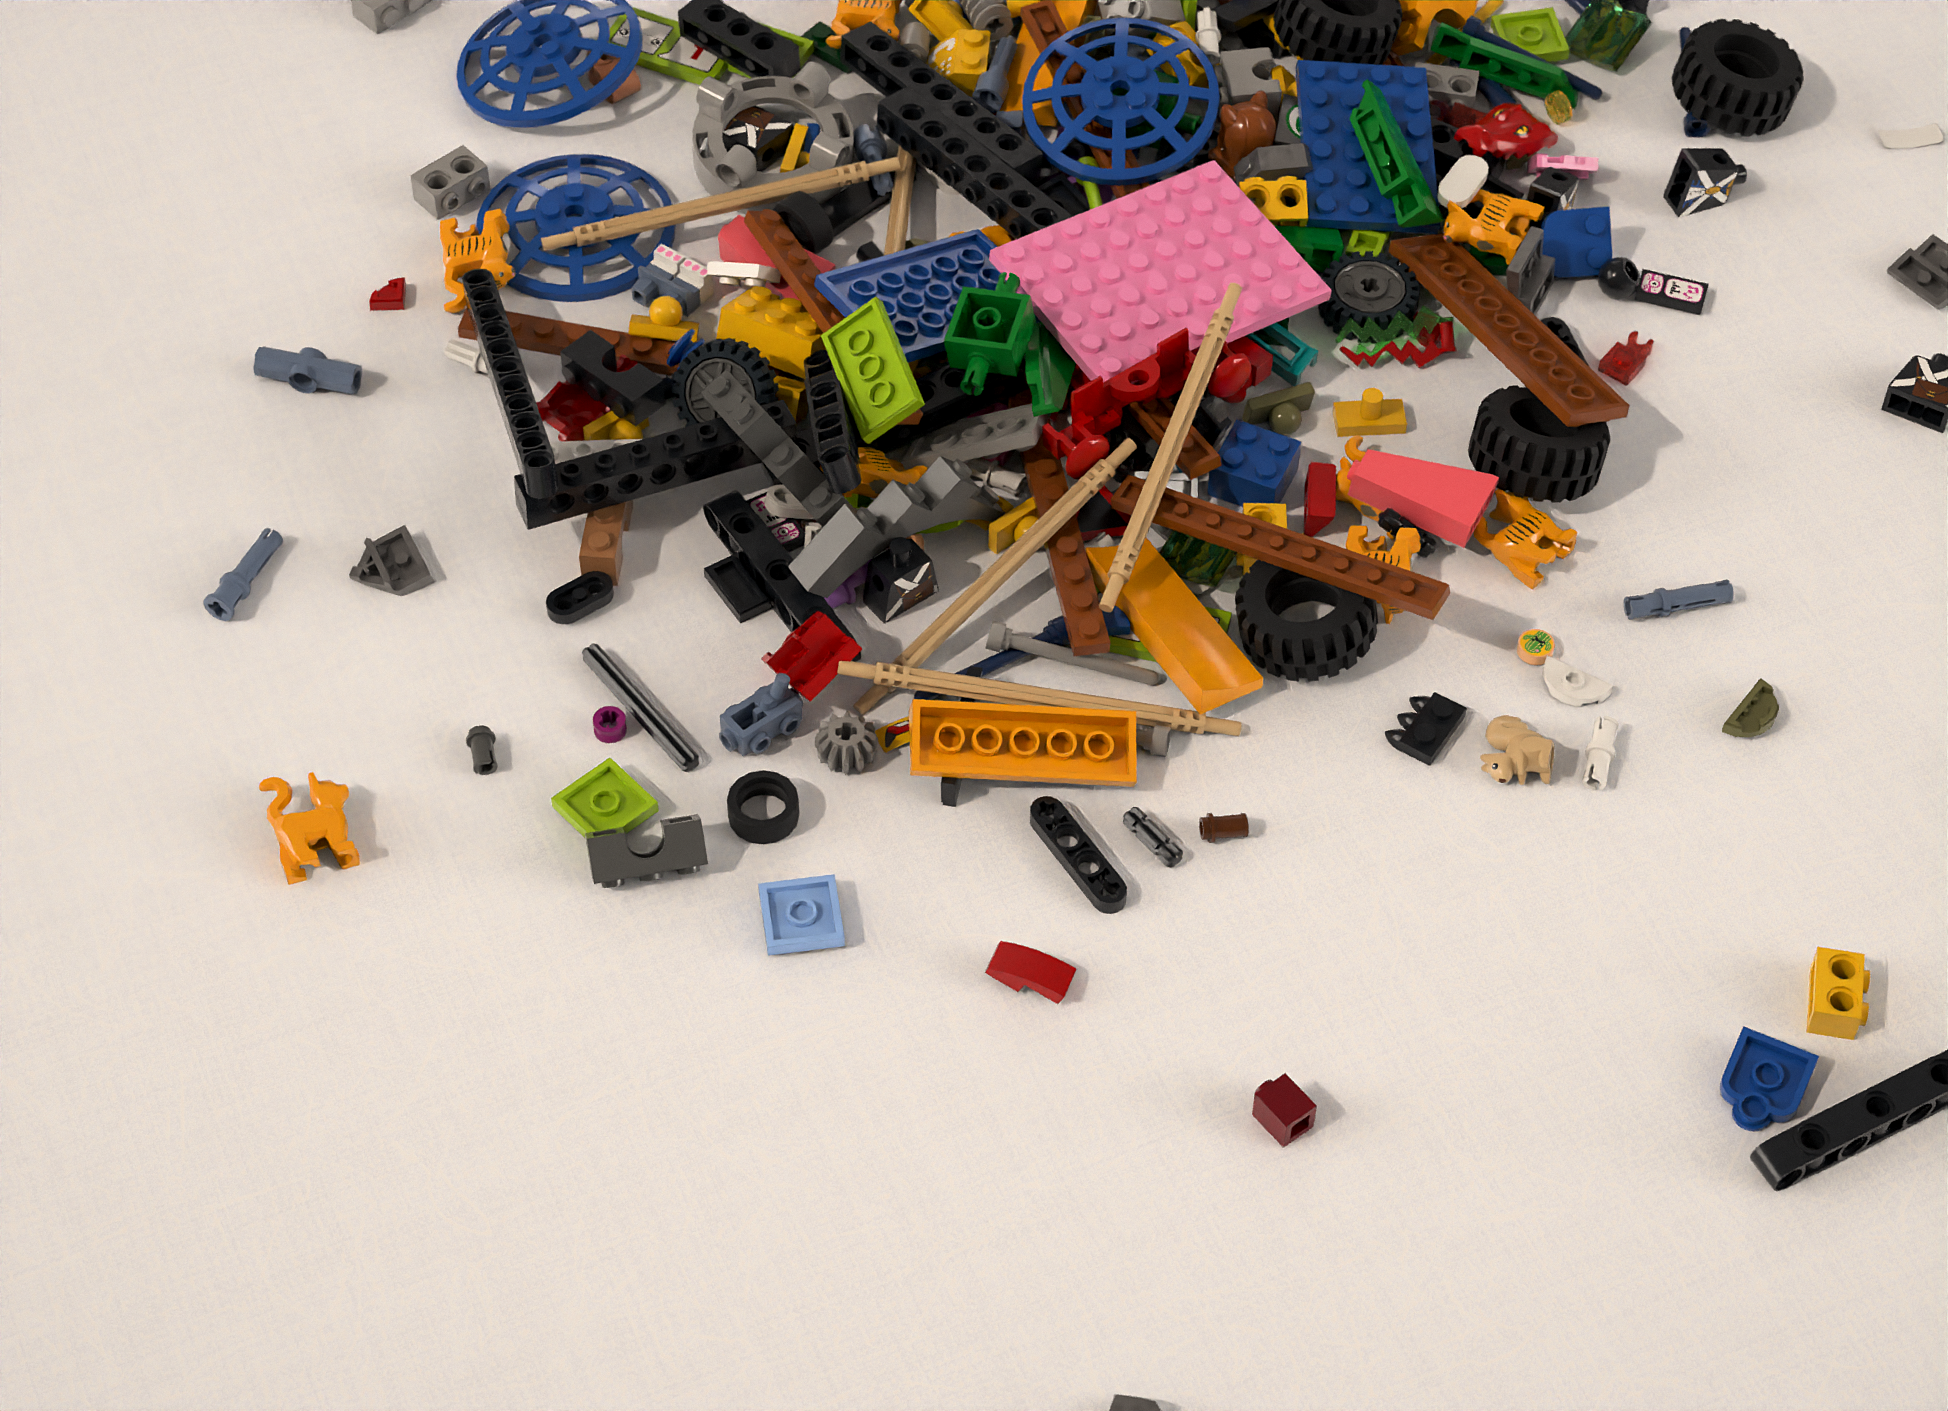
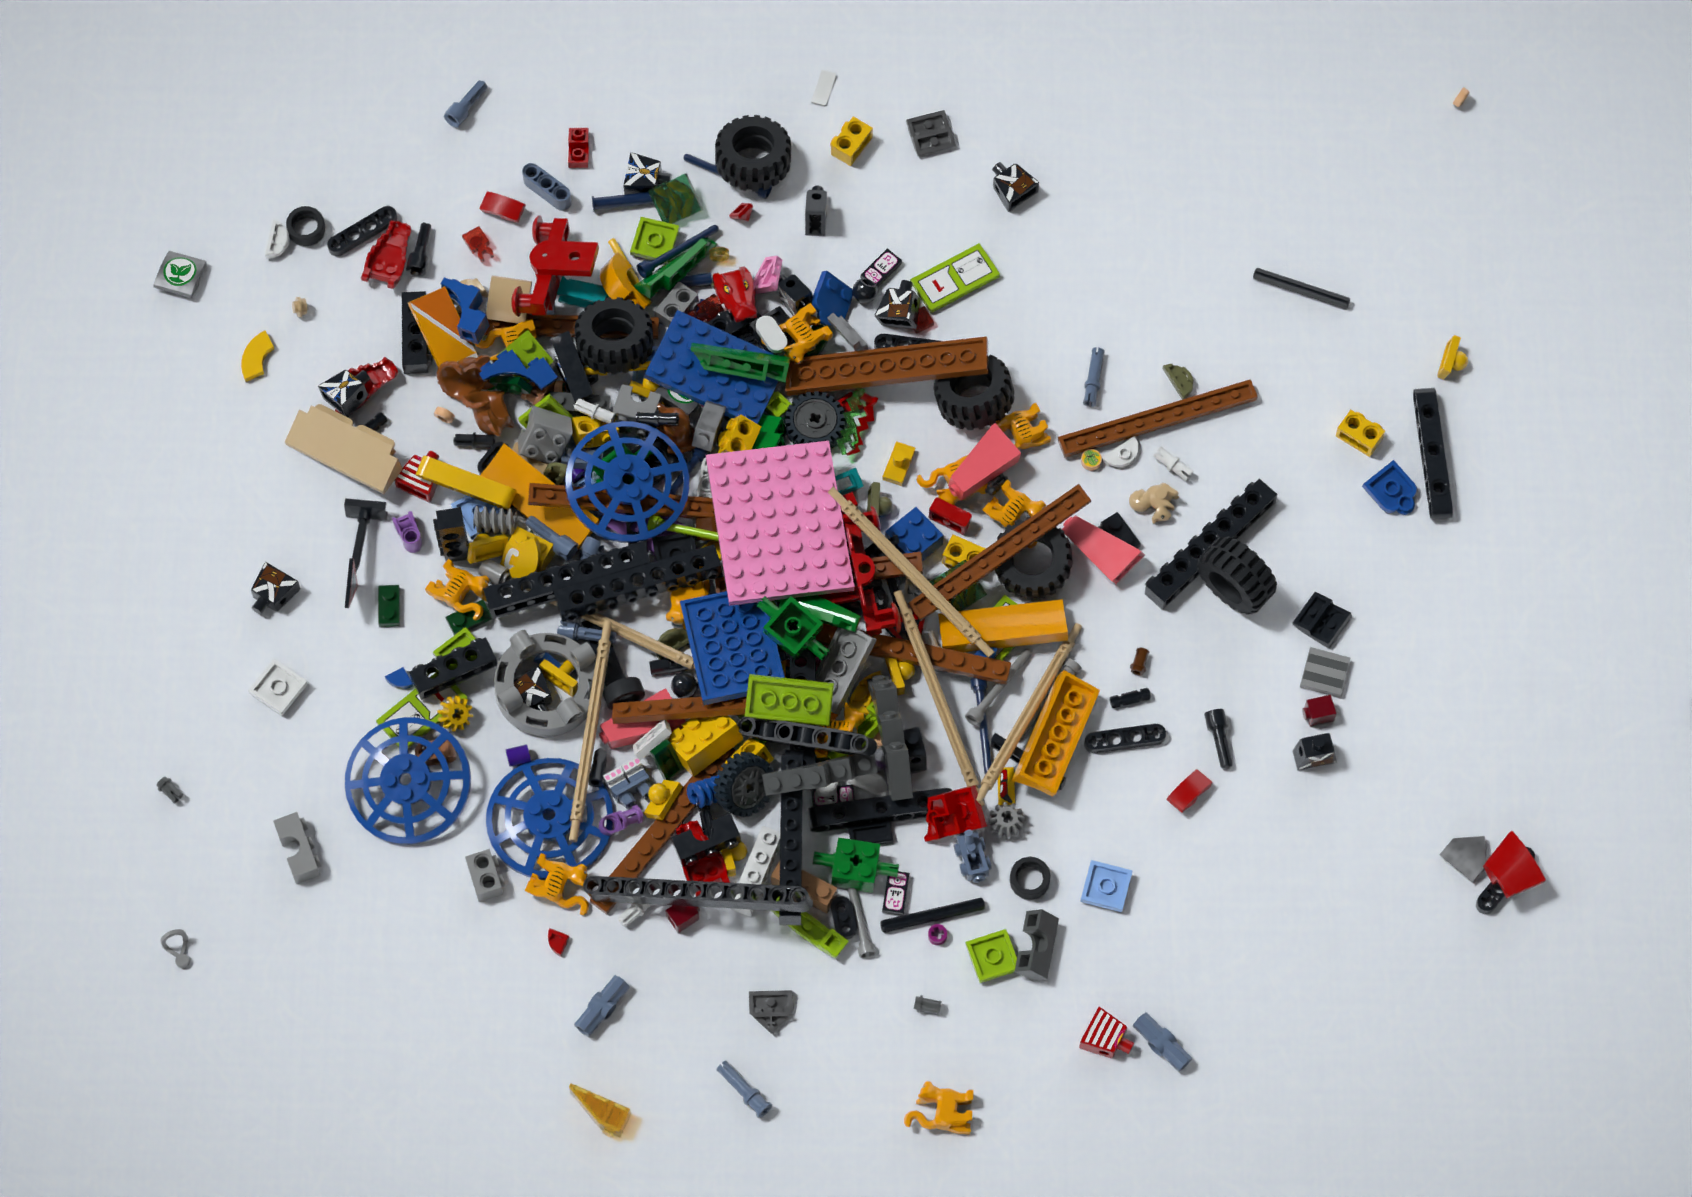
camera: 65 degrees left, 15 degrees up
(139, 424) = (605, 1113): none -> clear yellow slope
(483, 410) = (682, 916): none -> dark red brick
(534, 1000) = (1105, 1035): none -> red torso
(544, 566) = (818, 934): none -> lime slope
(547, 641) = (865, 944): none -> light grey piece
(557, 1087) = (1162, 1042): none -> sand blue piece
(608, 293) = (621, 820): none -> medium lavender connector
(652, 158) = (518, 755): none -> dark purple piece
(655, 649) = (896, 894): none -> tile
(670, 576) = (855, 852): none -> green brick
(678, 58) = (461, 716): none -> yellow gear
(685, 242) = (598, 768): none -> black bar
(721, 289) = (666, 760): none -> dark green plate
(951, 52) = (528, 558): none -> yellow tile
(1171, 969) = (1217, 723): none -> black piece
(1202, 1126) = (1316, 751): none -> black torso
(1235, 92) = (658, 418): none -> black pin
(1362, 1098) = (1325, 672): none -> tile
(1385, 704) = (1106, 551): none -> coral slope
(1441, 878) = (1237, 575): none -> black tyre
(1457, 1060) = (1322, 619): none -> black slope
(1492, 850) = (1258, 492): none -> black brick
(1620, 320) = (899, 307): none -> black torso
(1643, 112) = (742, 212): none -> red slope
(1670, 708) = (1157, 418): none -> dark orange plate
(1721, 380) = (955, 278): none -> tile
(1848, 186) = (855, 142): none -> yellow brick

